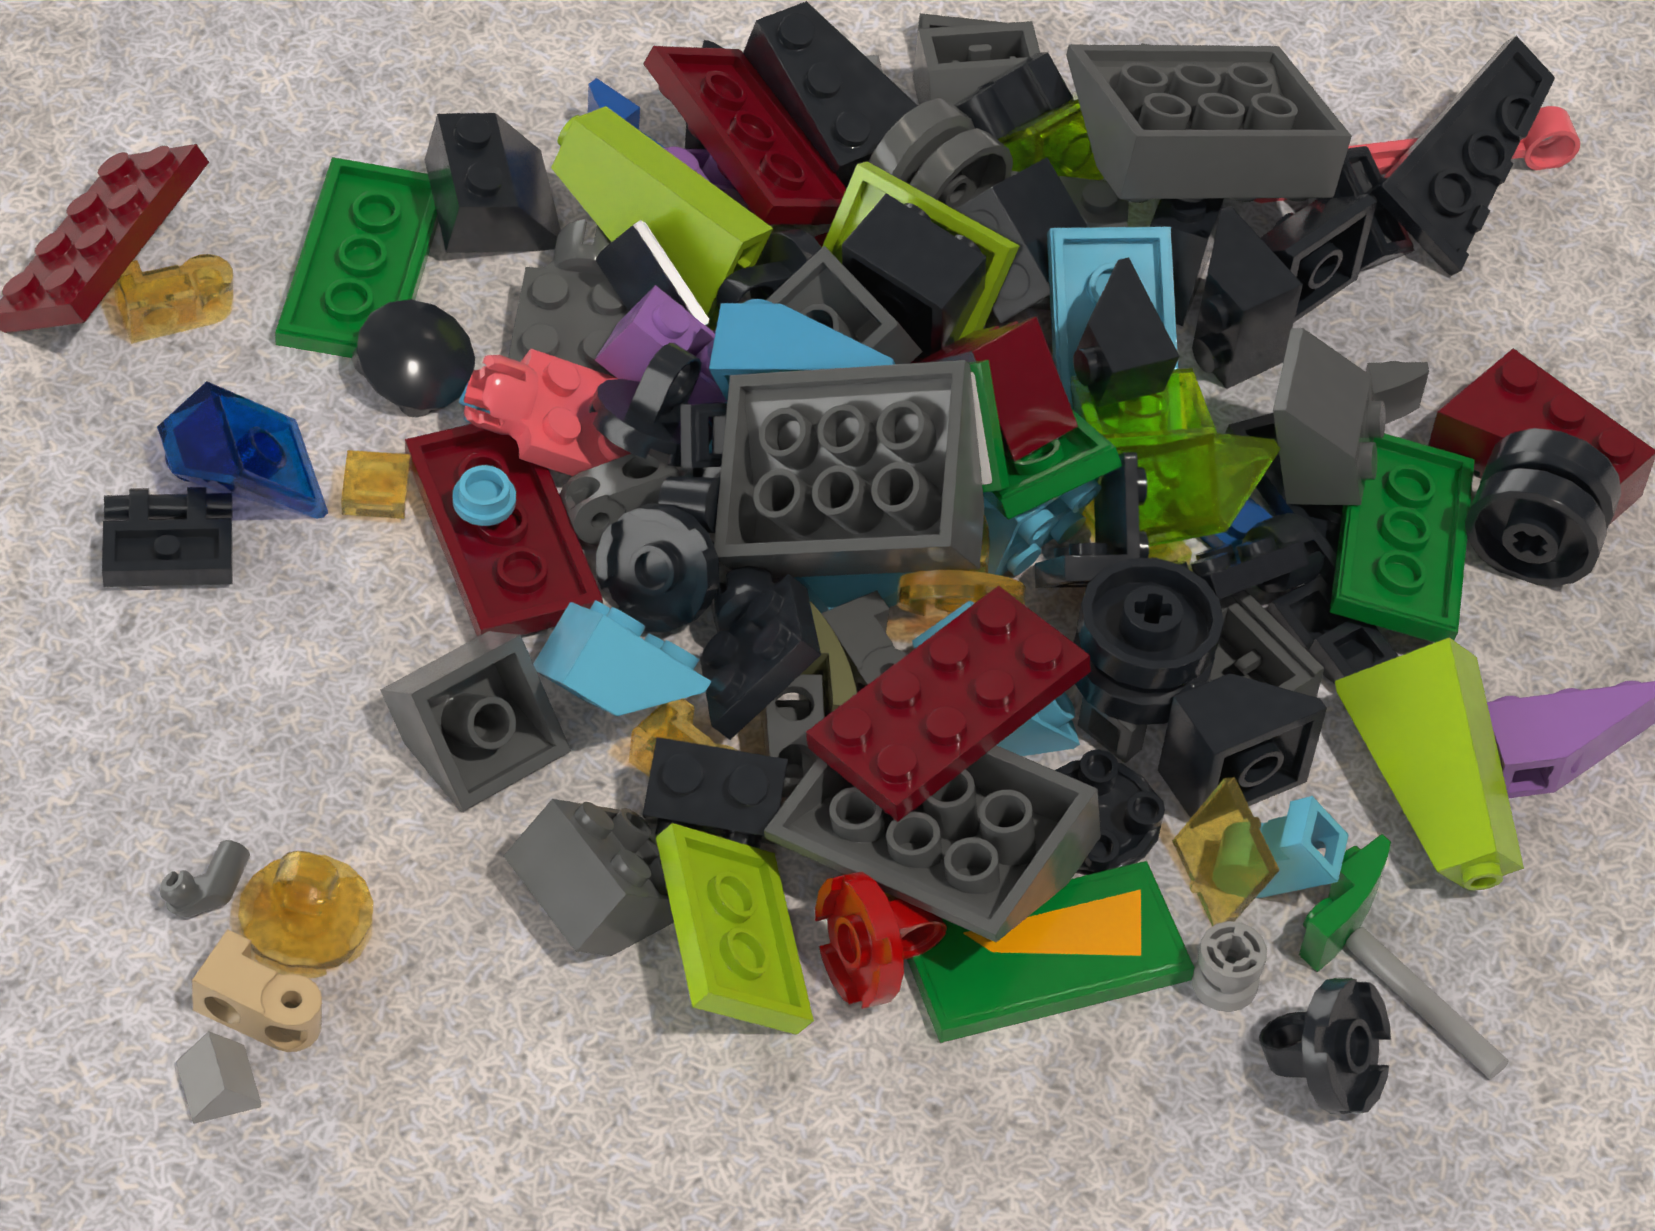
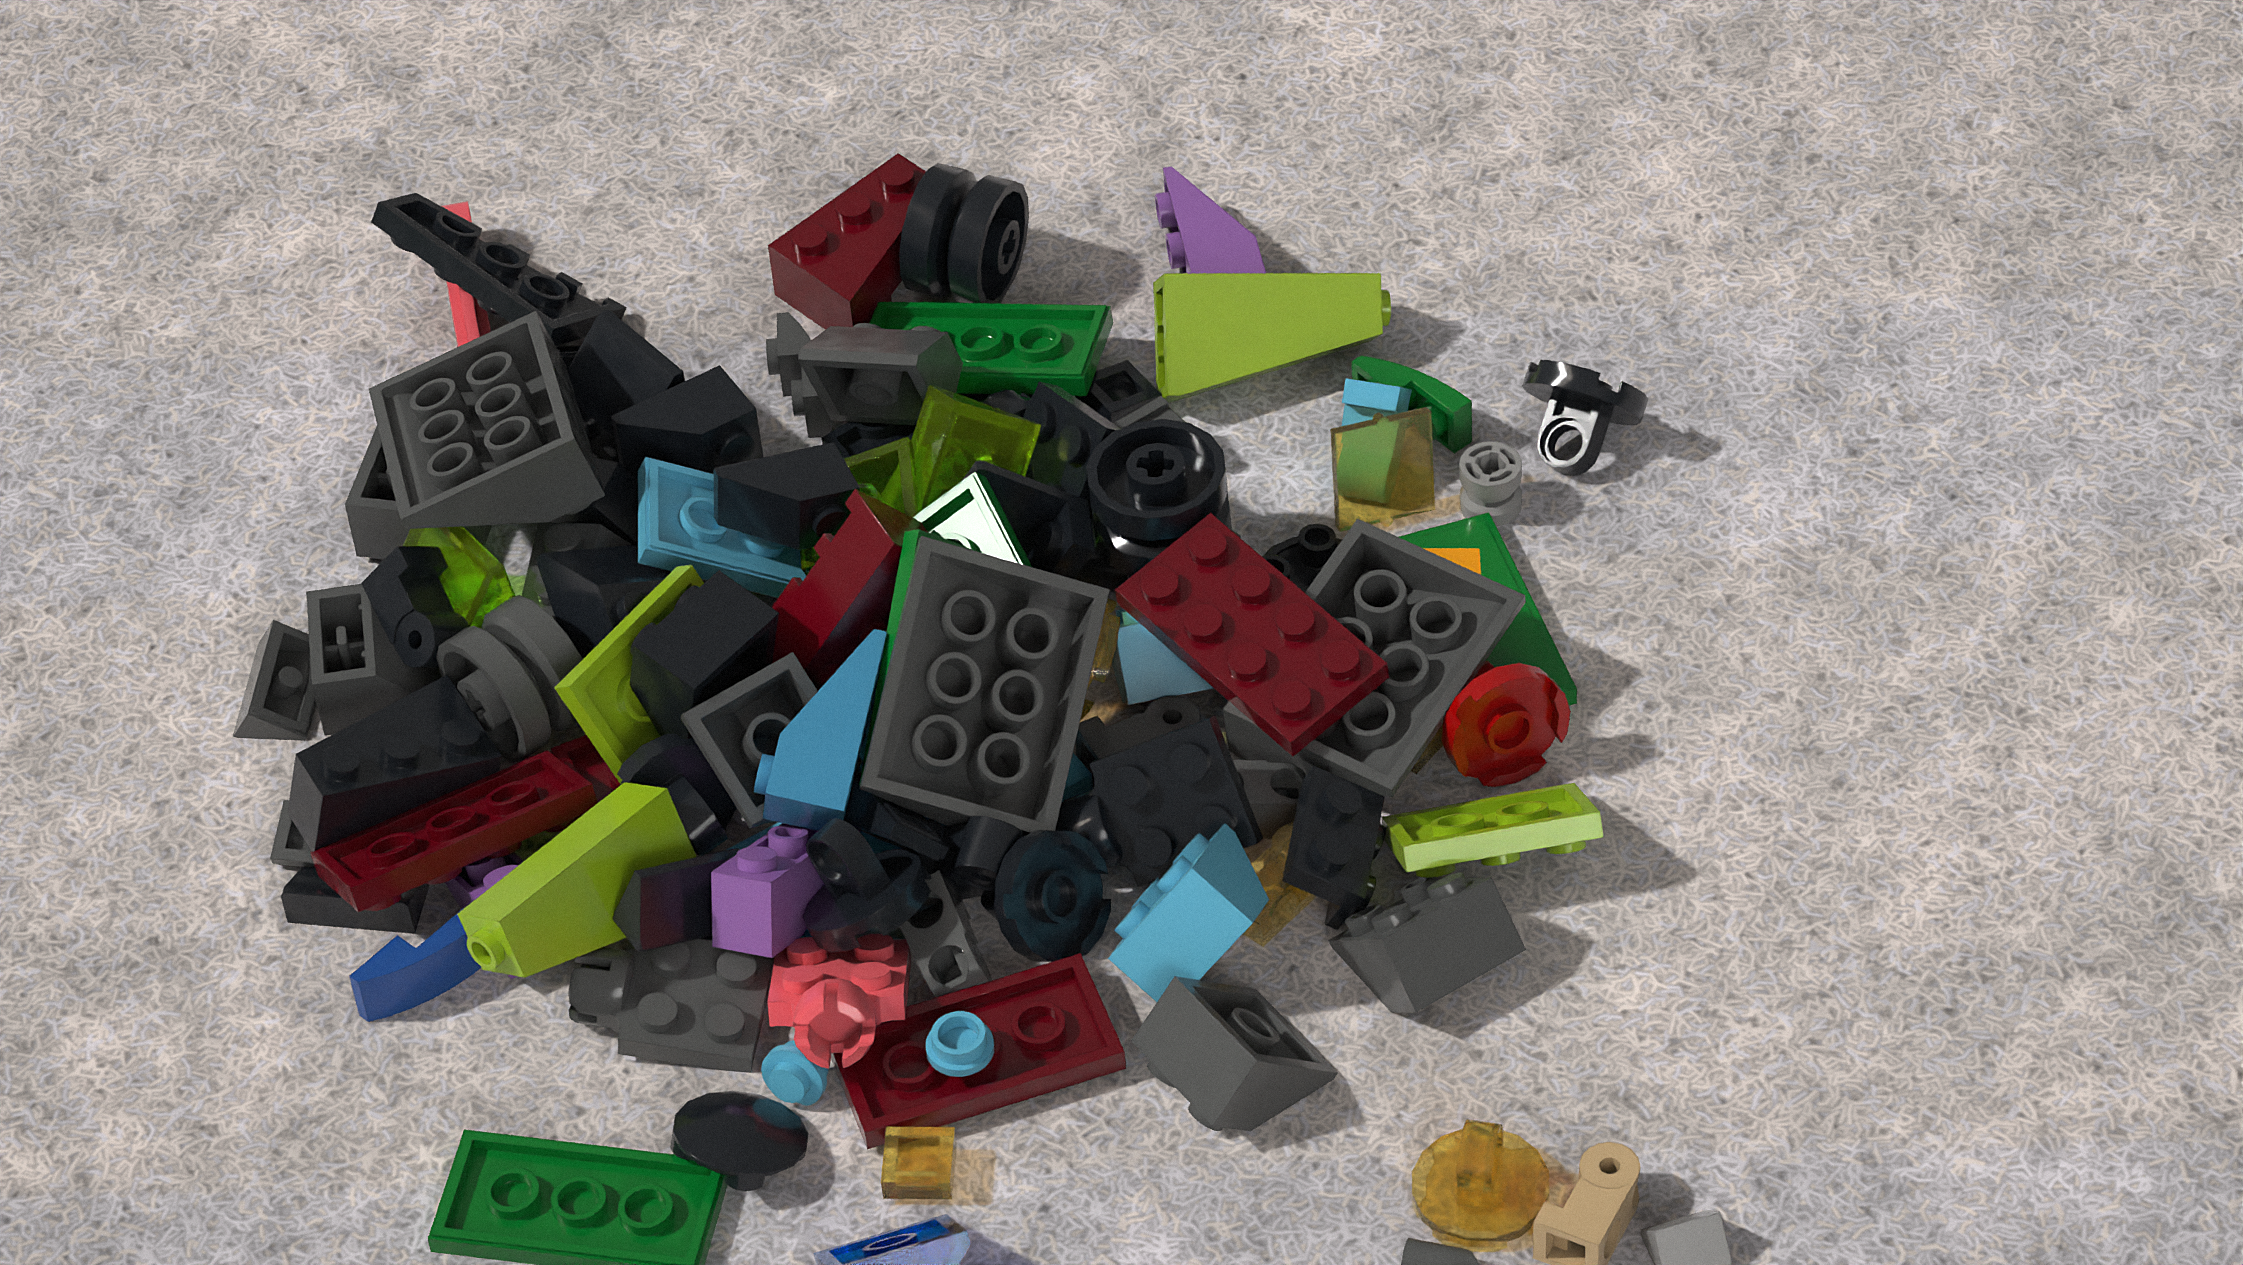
camera: 80 degrees left, 5 degrees down
(489, 186) = (502, 1082): black slope -> none
(1241, 732) = (1264, 459): black slope -> none
(1426, 1003) = (1518, 356): light grey bar -> none

